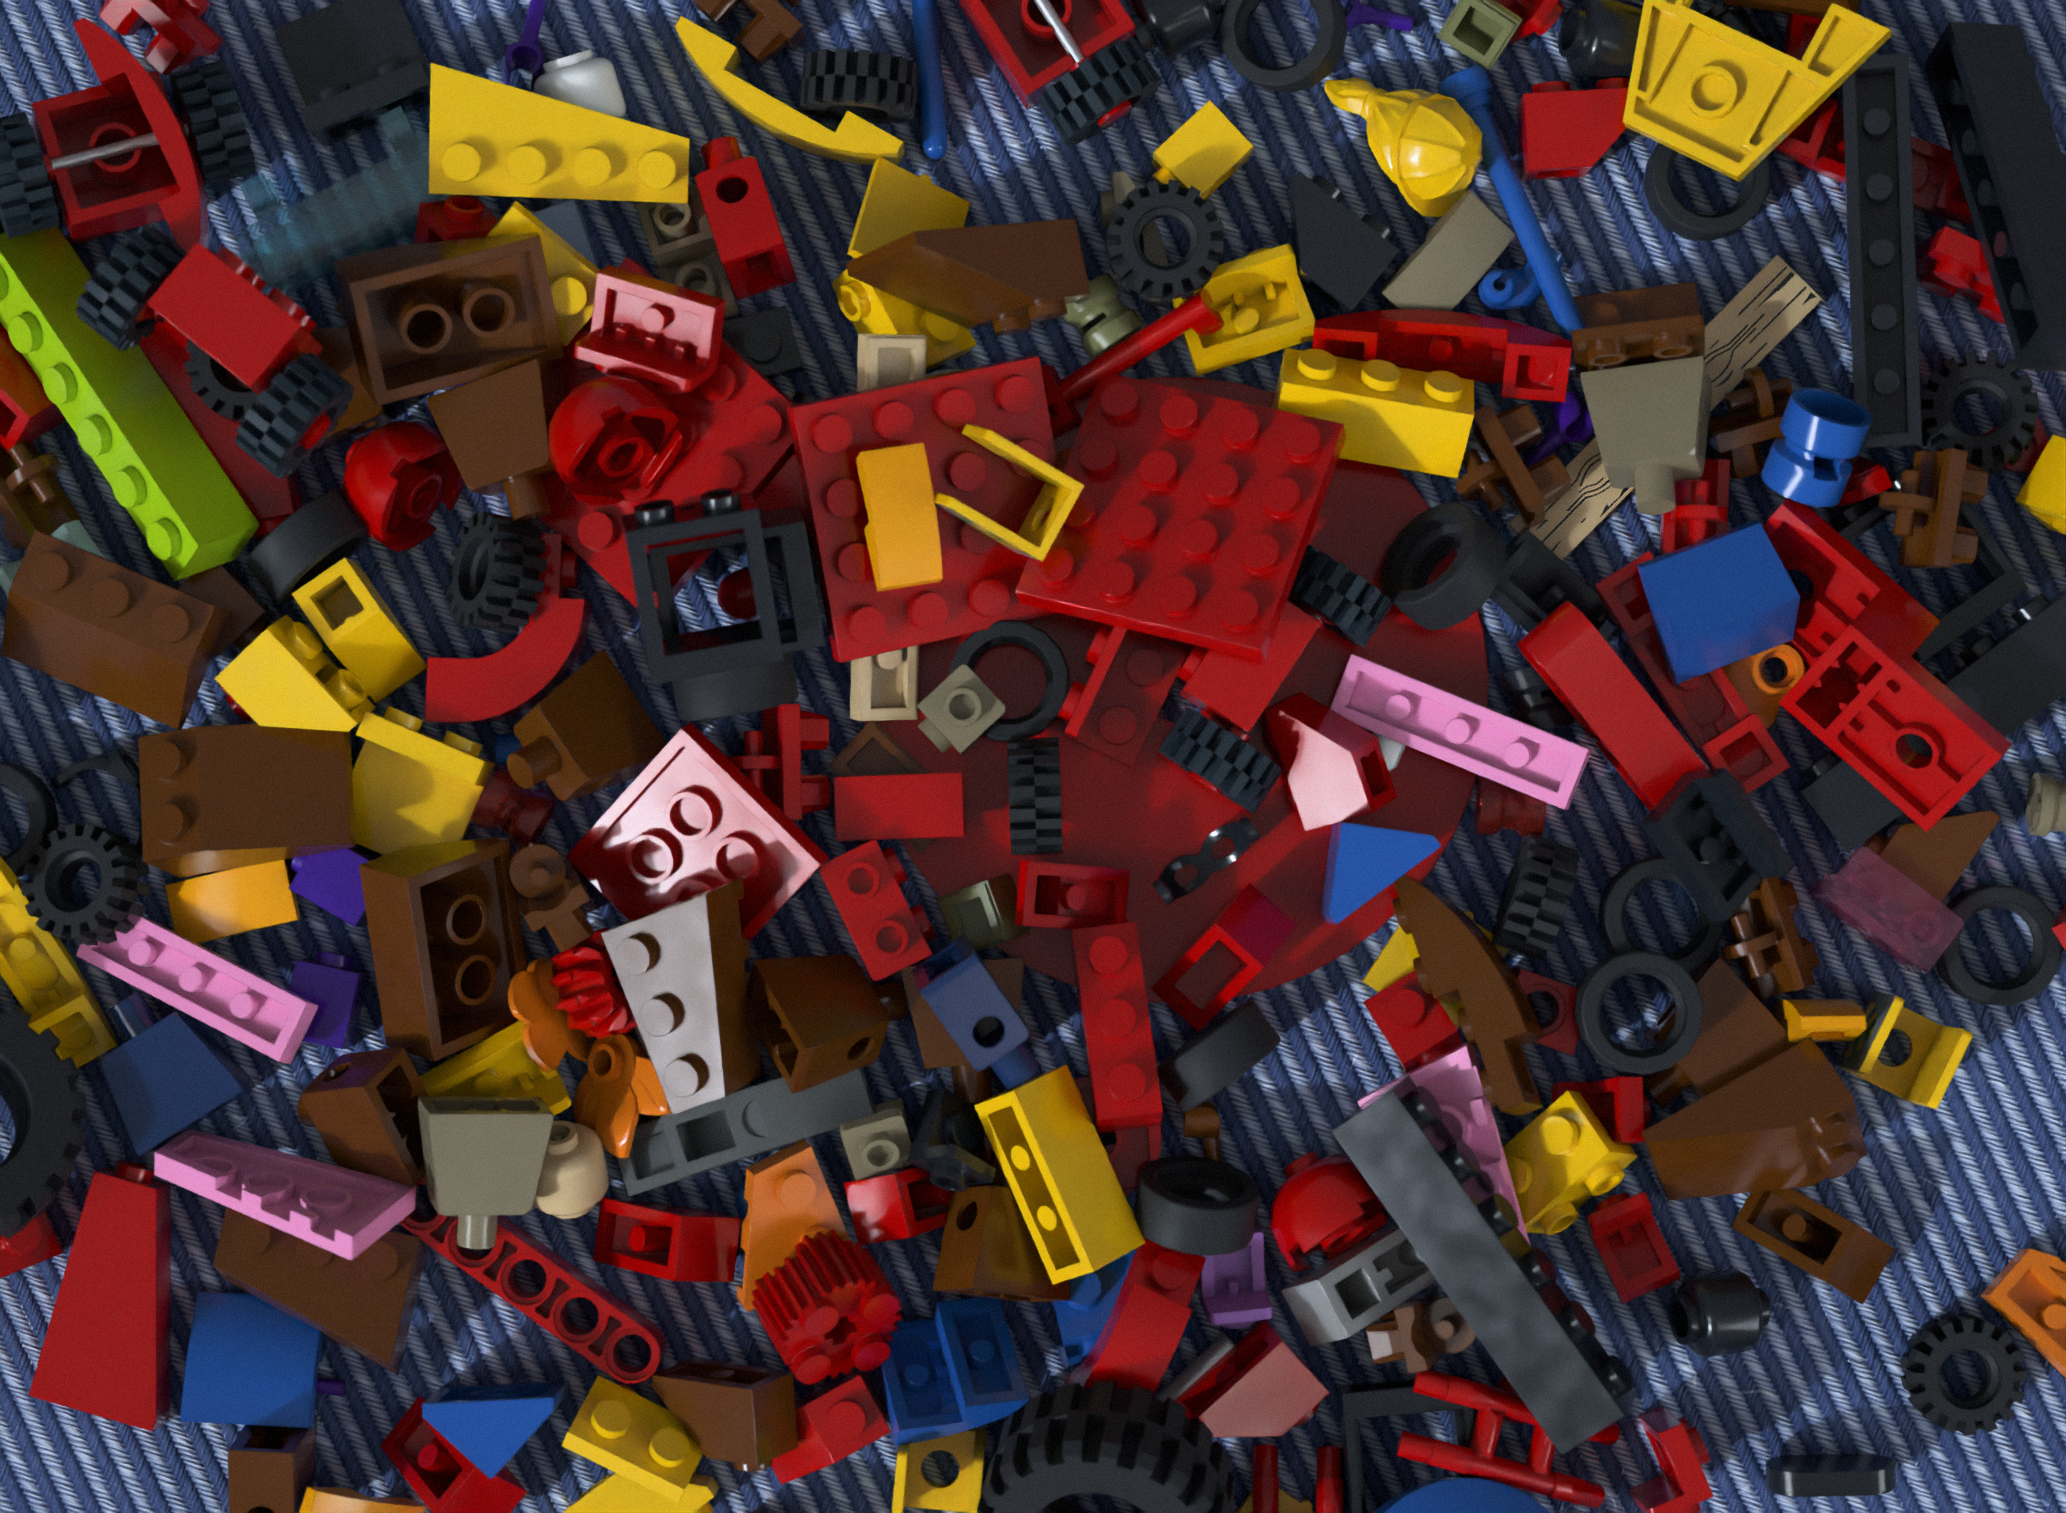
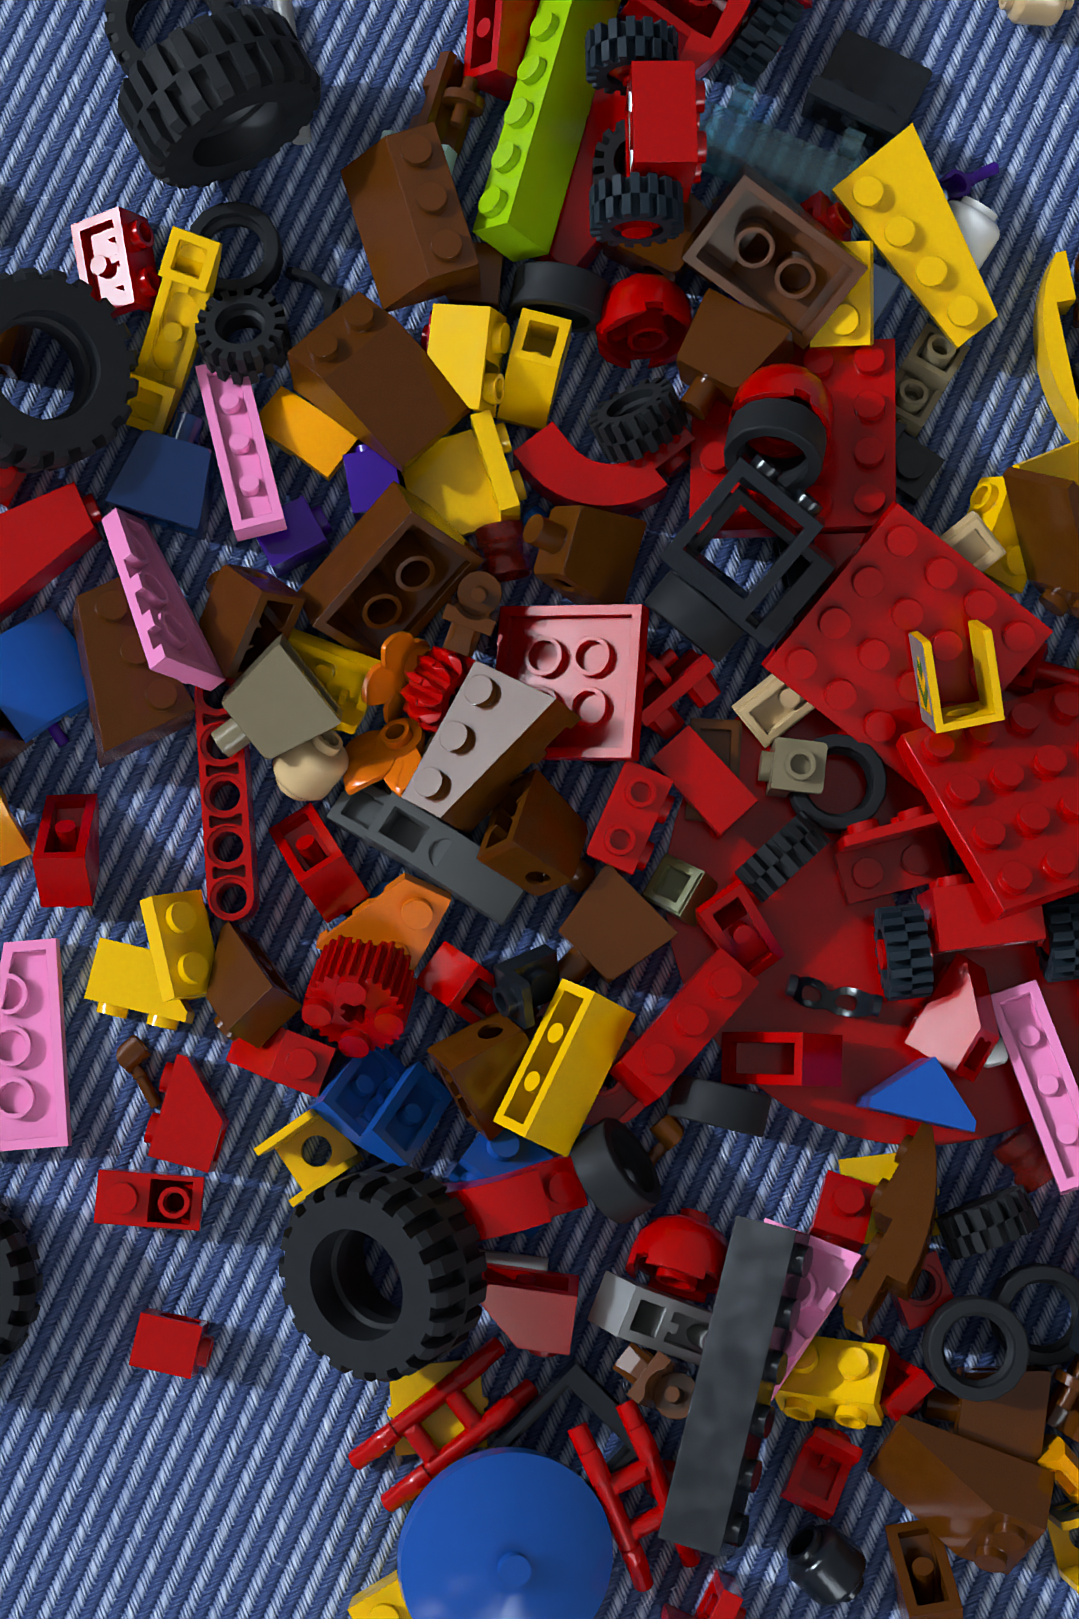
camera: 50 degrees right, 5 degrees down
(492, 1419) = (118, 849): blue slope -> none
(625, 451) = (784, 420): none -> black tyre
(653, 331) = (869, 385): red bracket -> none
(737, 596) = (748, 574): red hinge -> none
(743, 220) = (975, 391): red torso -> none
(878, 1140) = (488, 938): dark tan bracket -> none
(901, 516) = (888, 625): light orange slope -> none
(961, 994) = (630, 908): dark blue torso -> none
(1234, 1286) = (586, 1237): medium lavender bracket -> none

